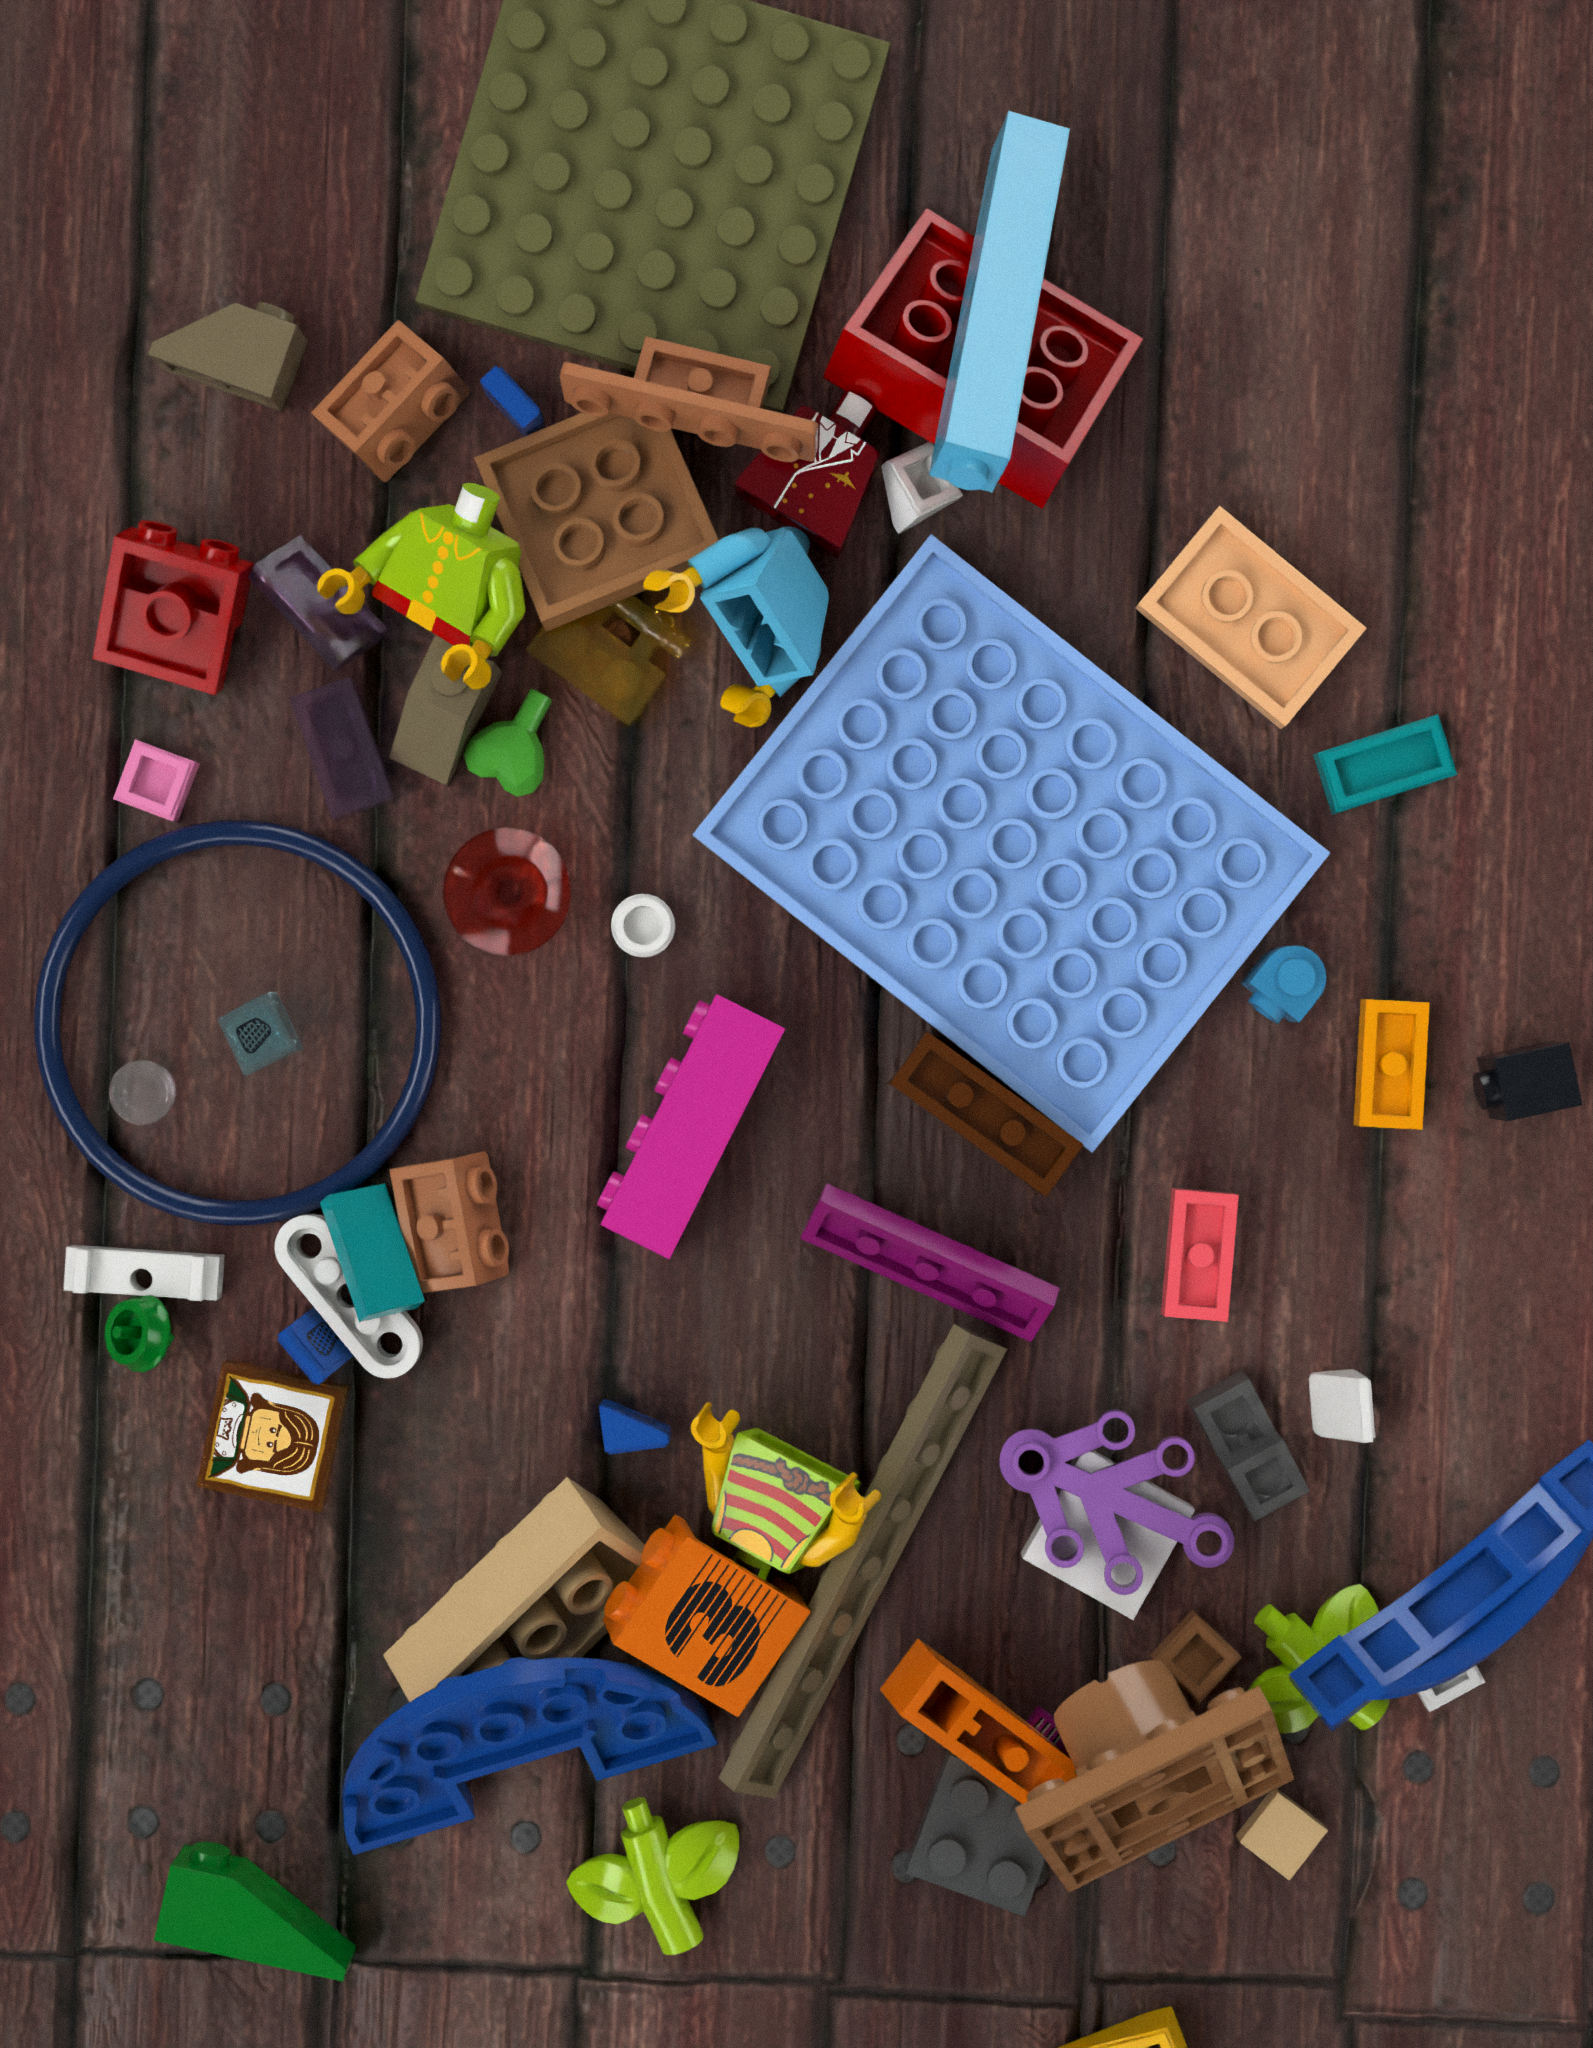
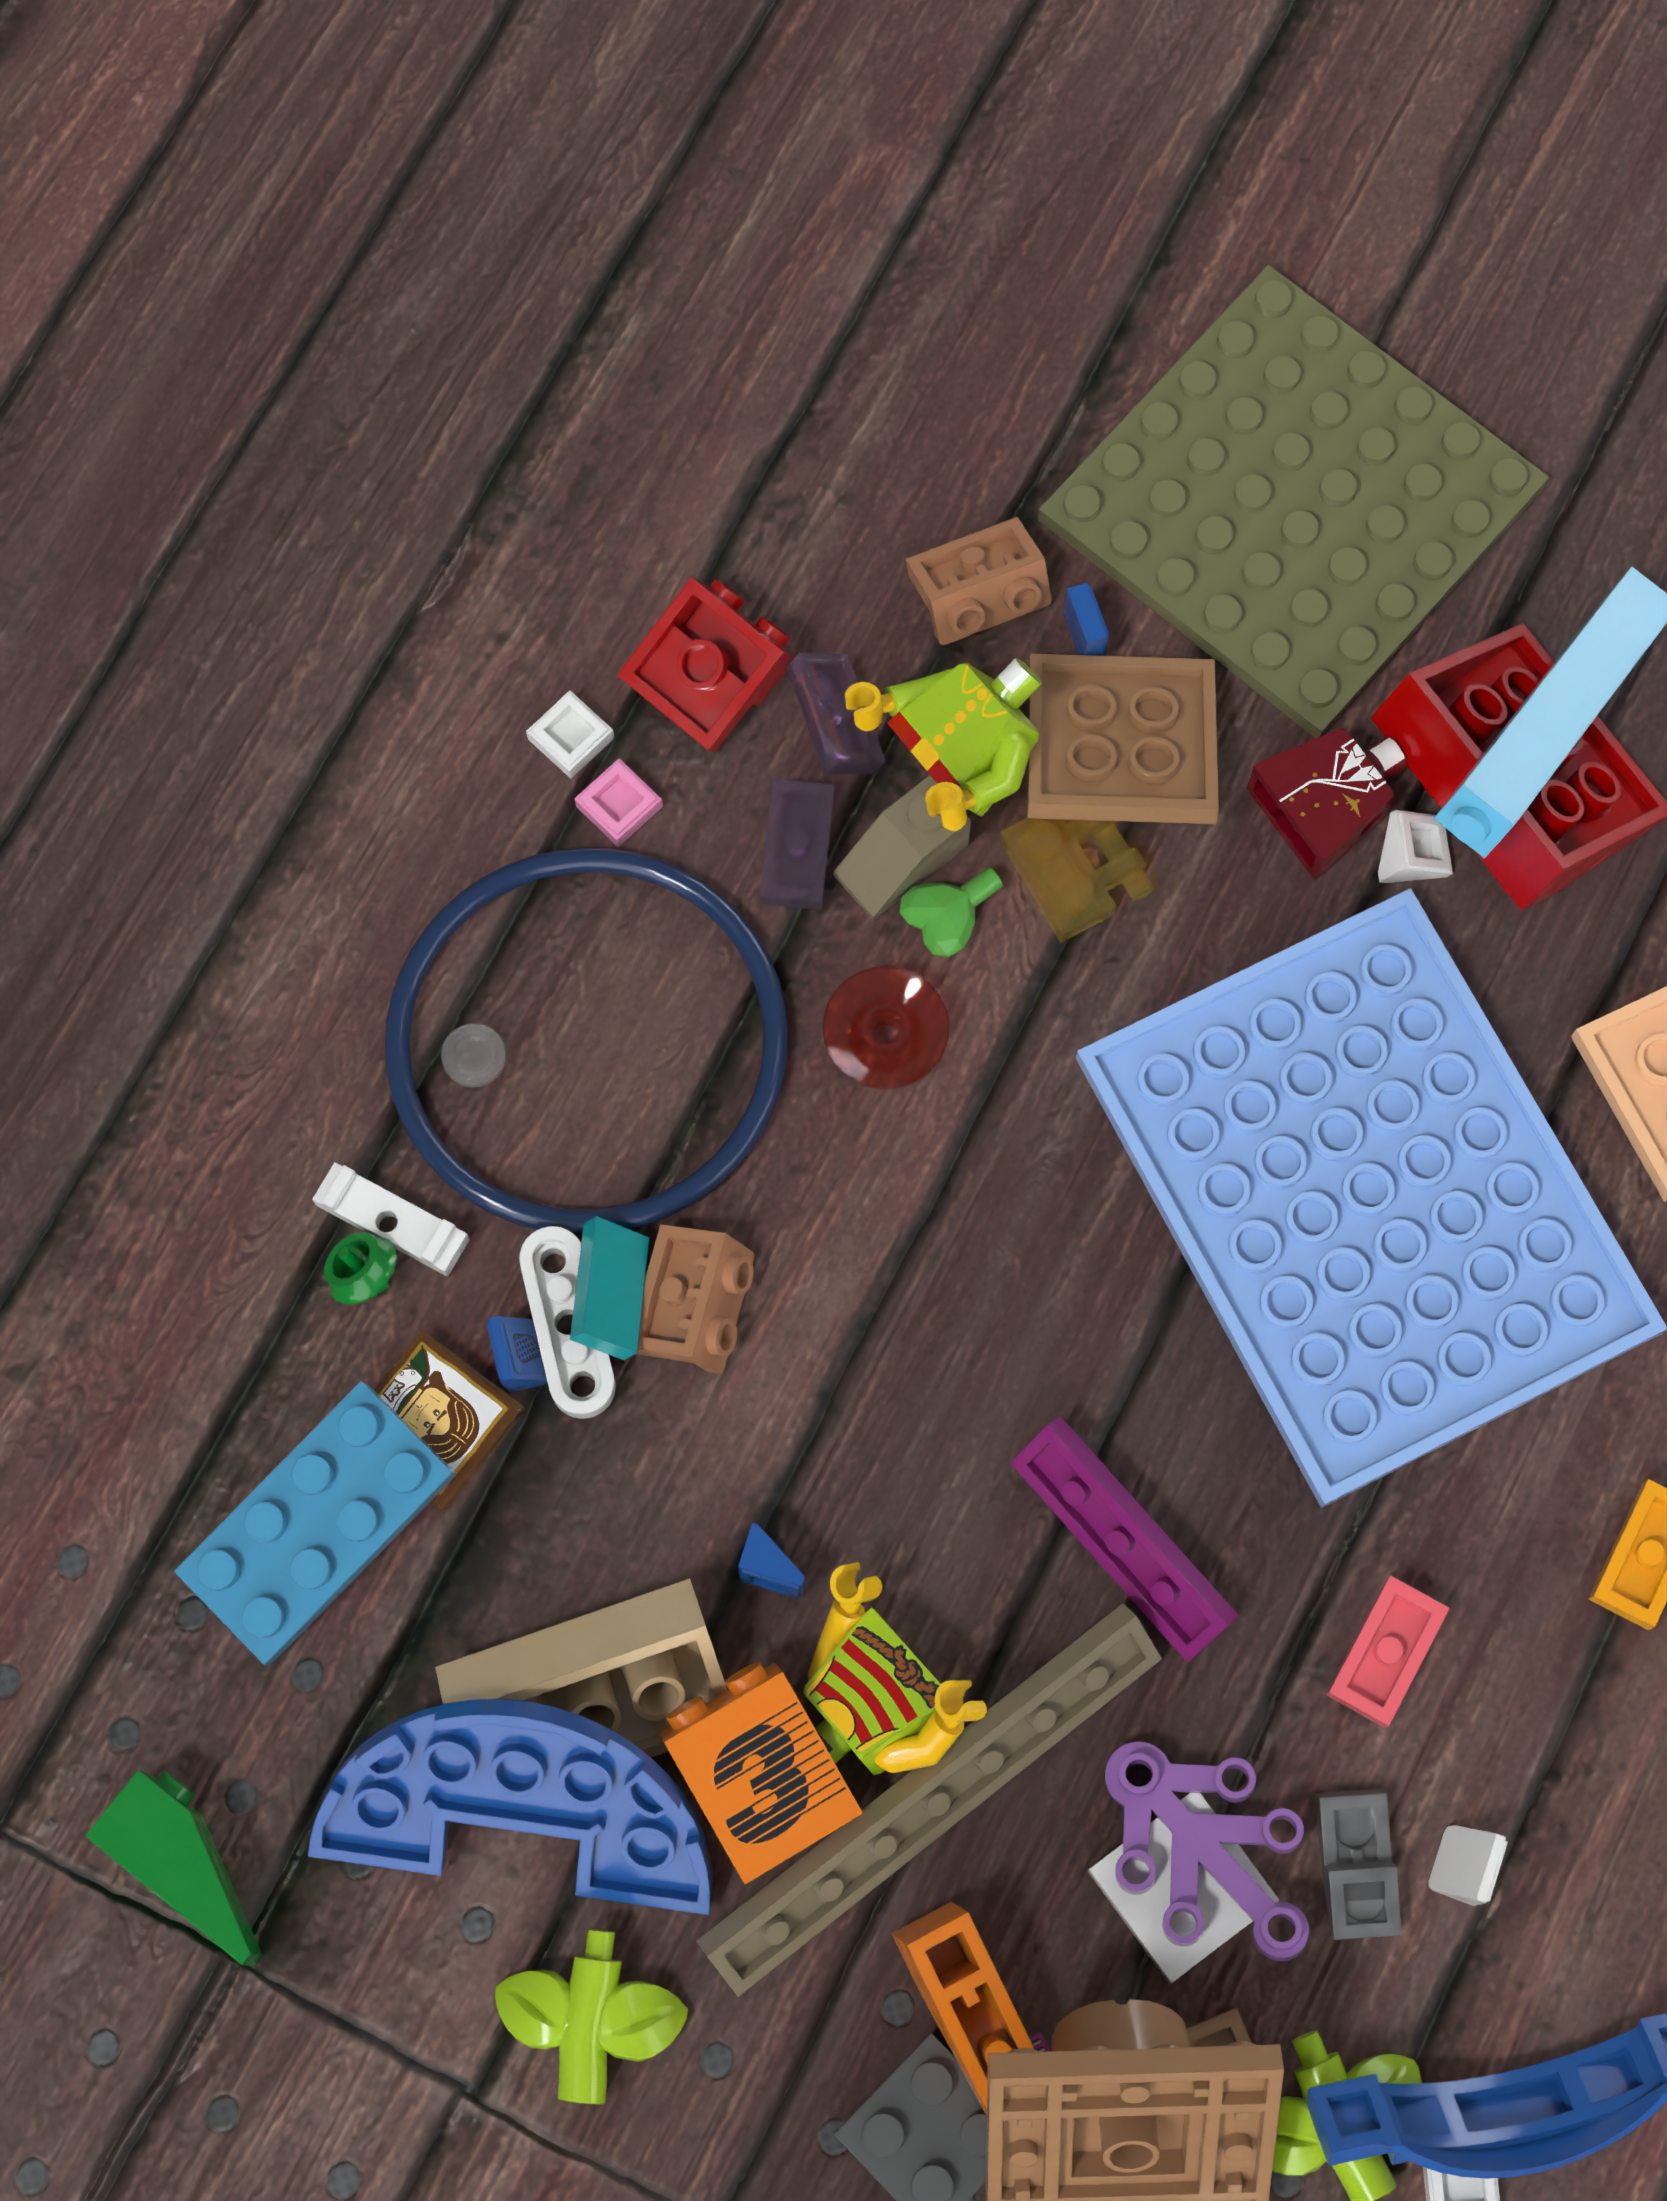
camera: 30 degrees right, 15 degrees down
(77, 734) = (570, 734): none -> white tile
(215, 1575) = (315, 1523): none -> dark azure plate
(237, 352) = (865, 485): dark tan slope -> none
(260, 1033) = (604, 1051): clear light blue slope -> none
(643, 925) = (993, 1116): white tile -> none
(691, 1126) = (957, 1308): dark pink brick -> none
(695, 394) = (1250, 677): nougat bracket -> none
(765, 605) = (1235, 879): medium azure torso -> none
(986, 1114) = (1239, 1419): reddish brown container -> none
(1286, 983) = (1576, 1431): dark azure plate -> none

